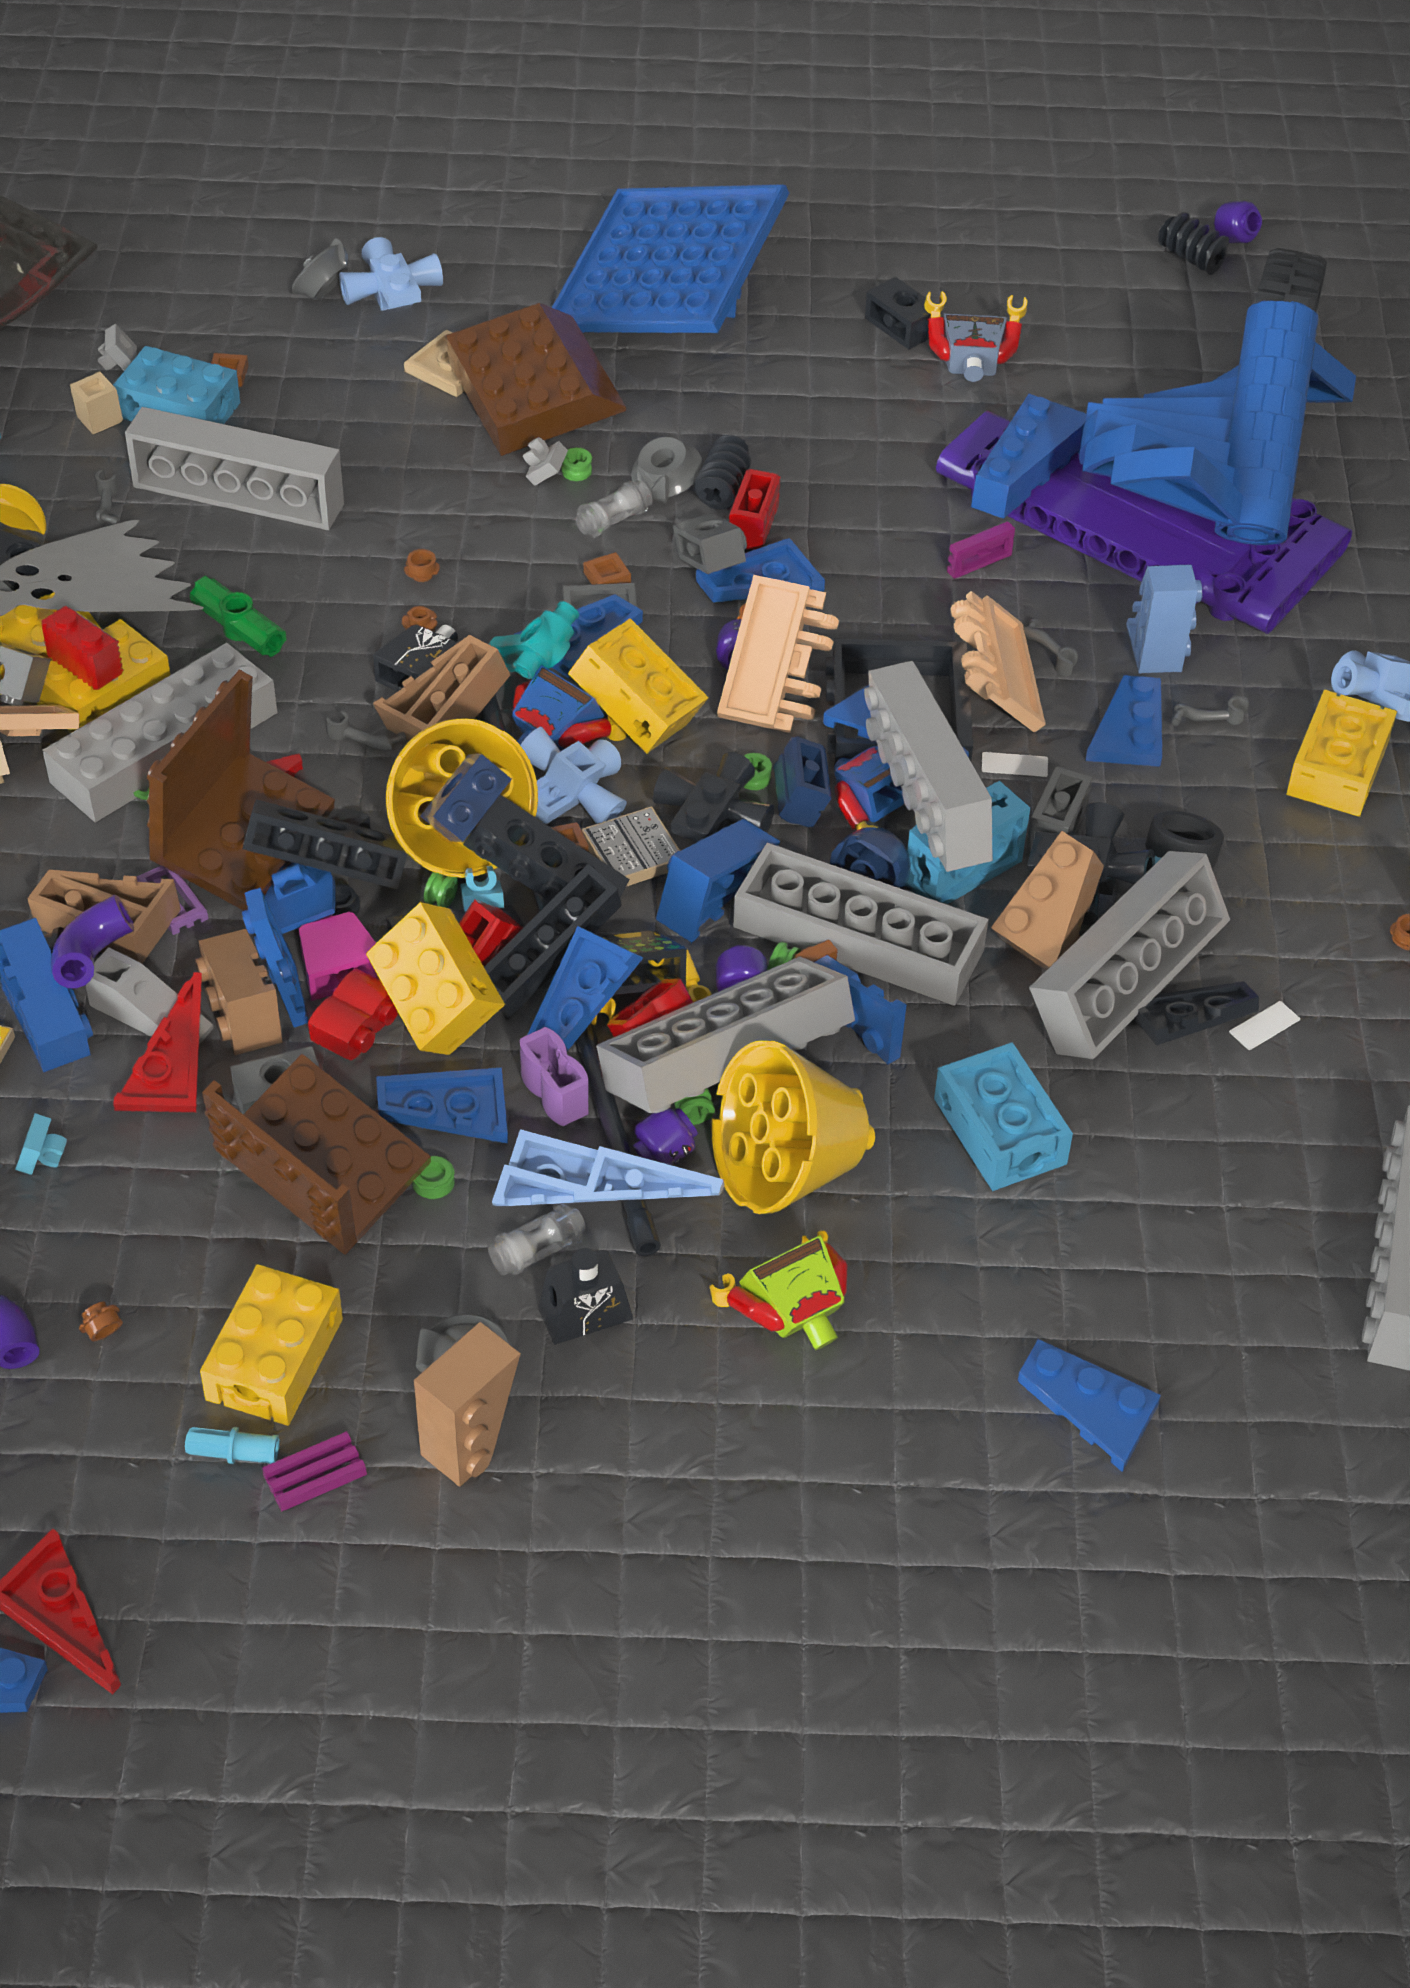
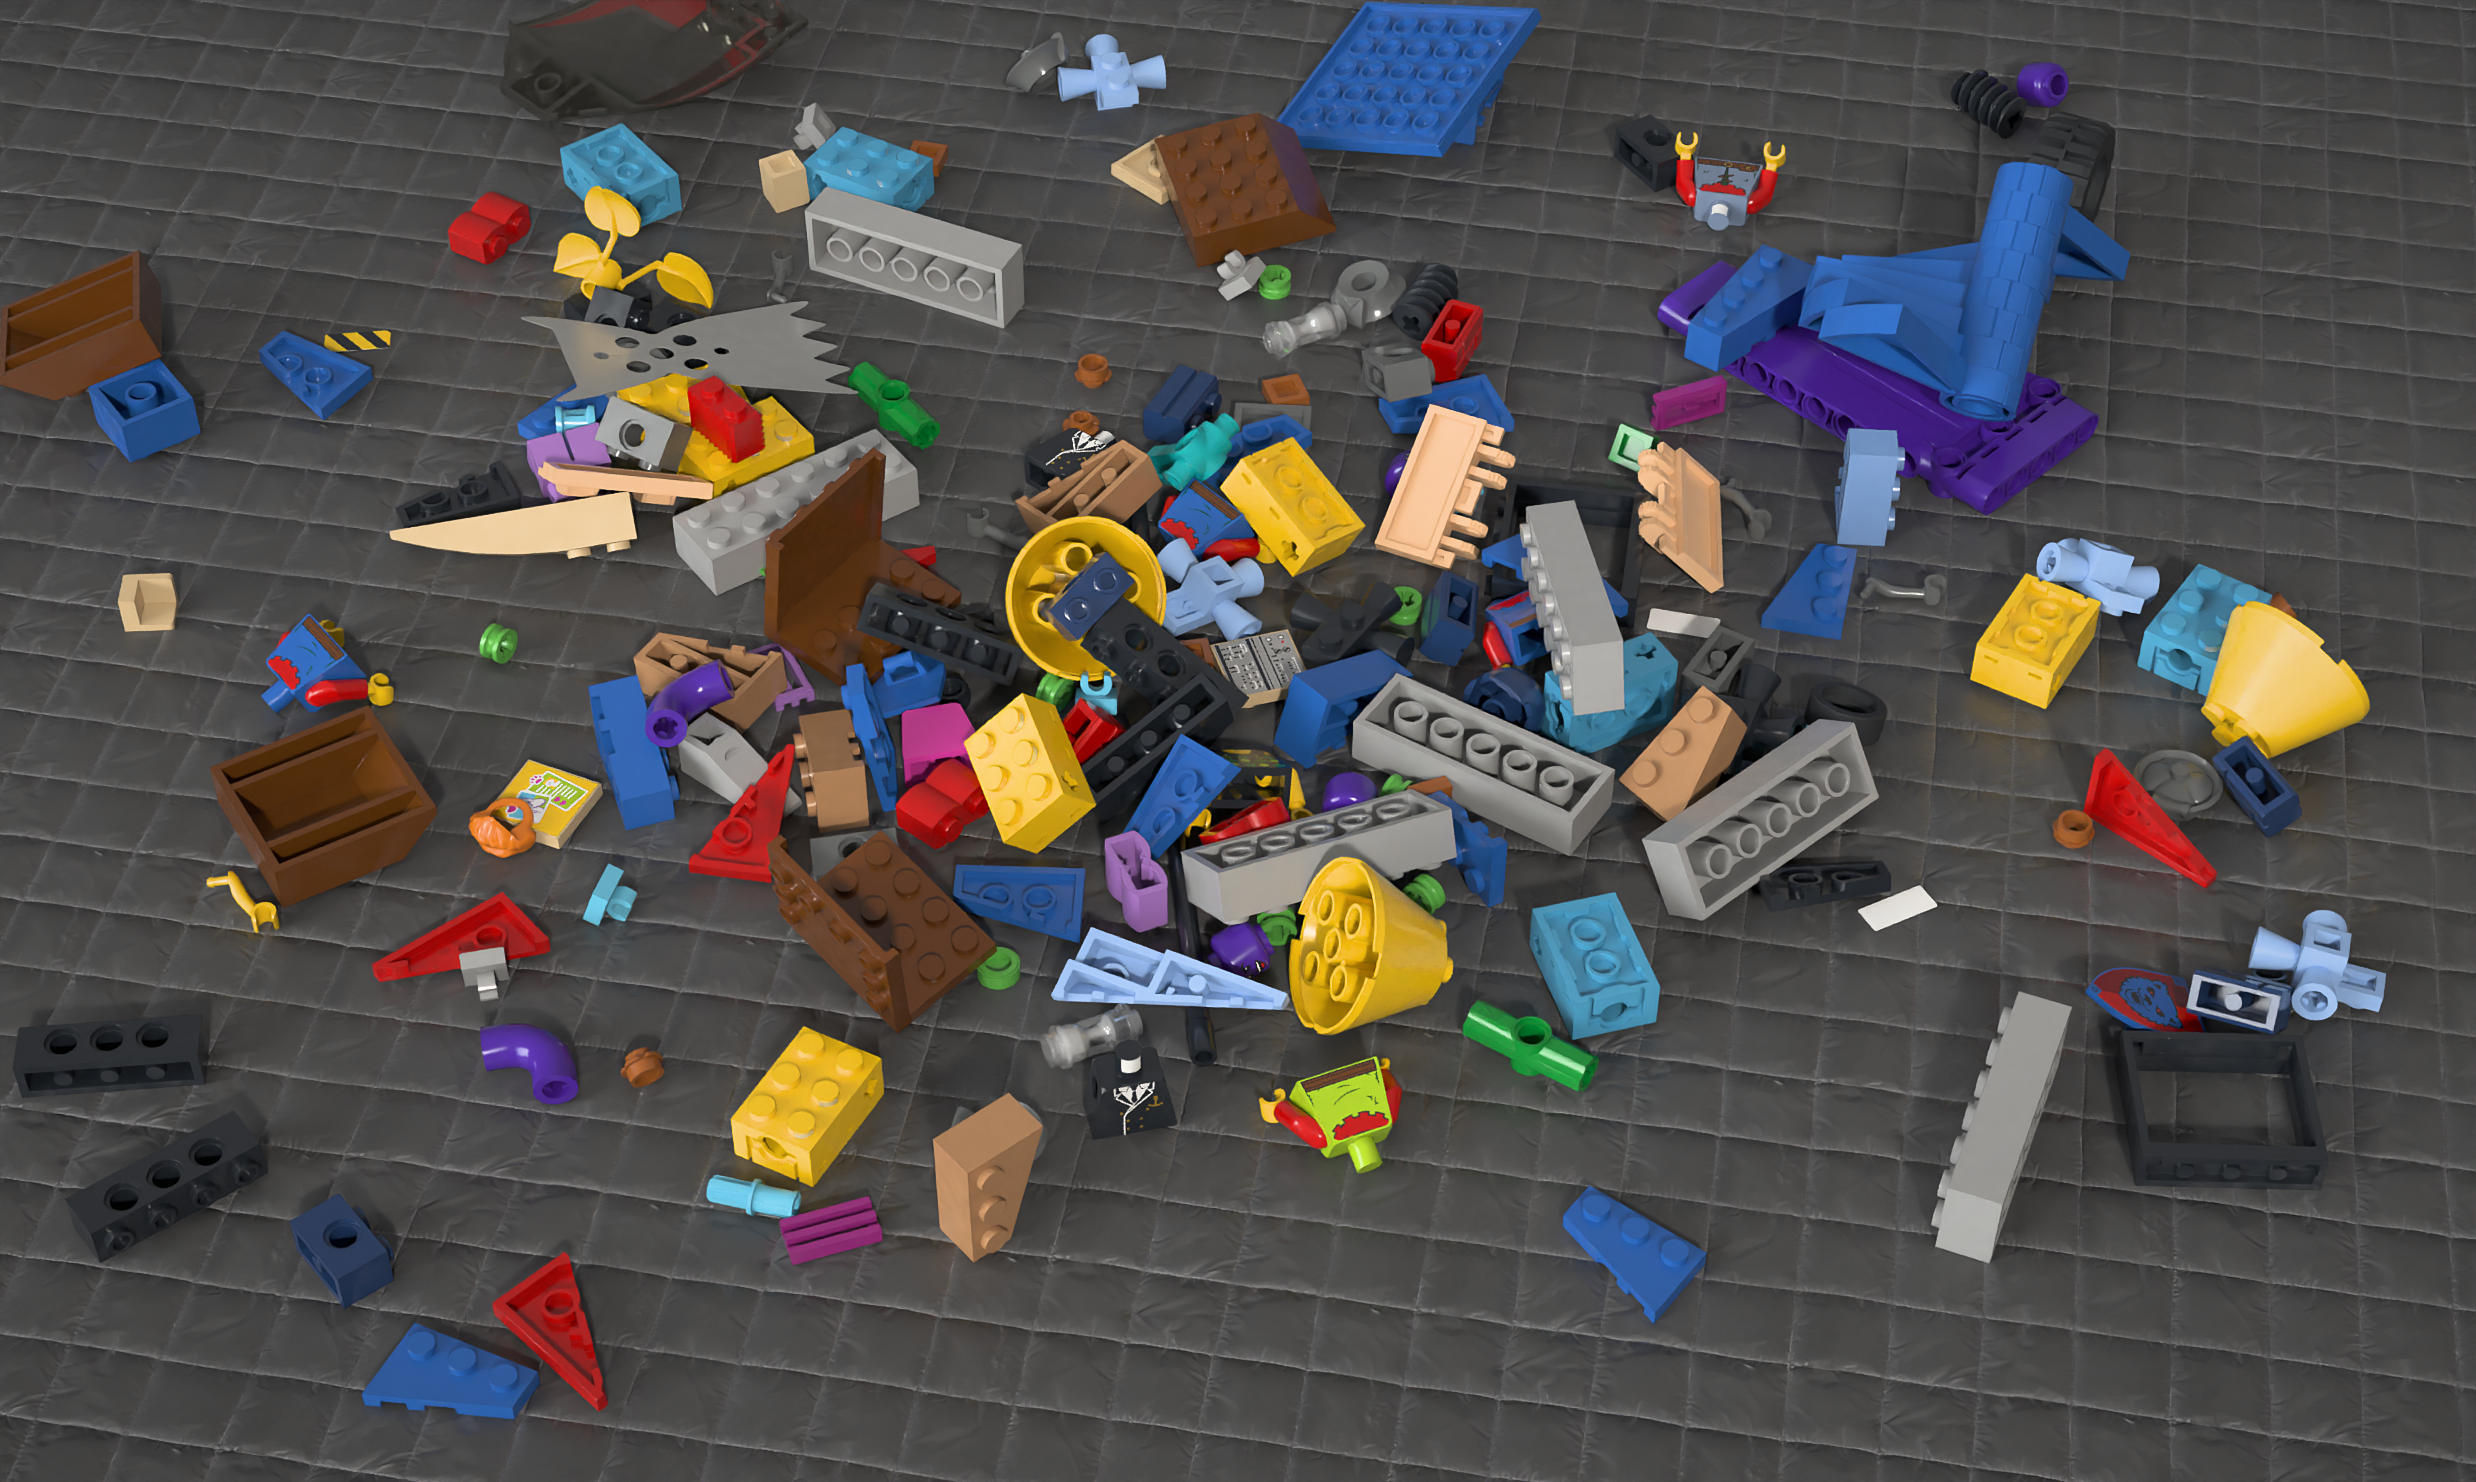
camera: 10 degrees right, 5 degrees down
(512, 594) = (1181, 405): none -> dark blue brick
(829, 1058) = (1426, 893): none -> bright green bush
(938, 597) = (1629, 443): none -> tile
(956, 1203) = (1530, 1046): none -> green piece

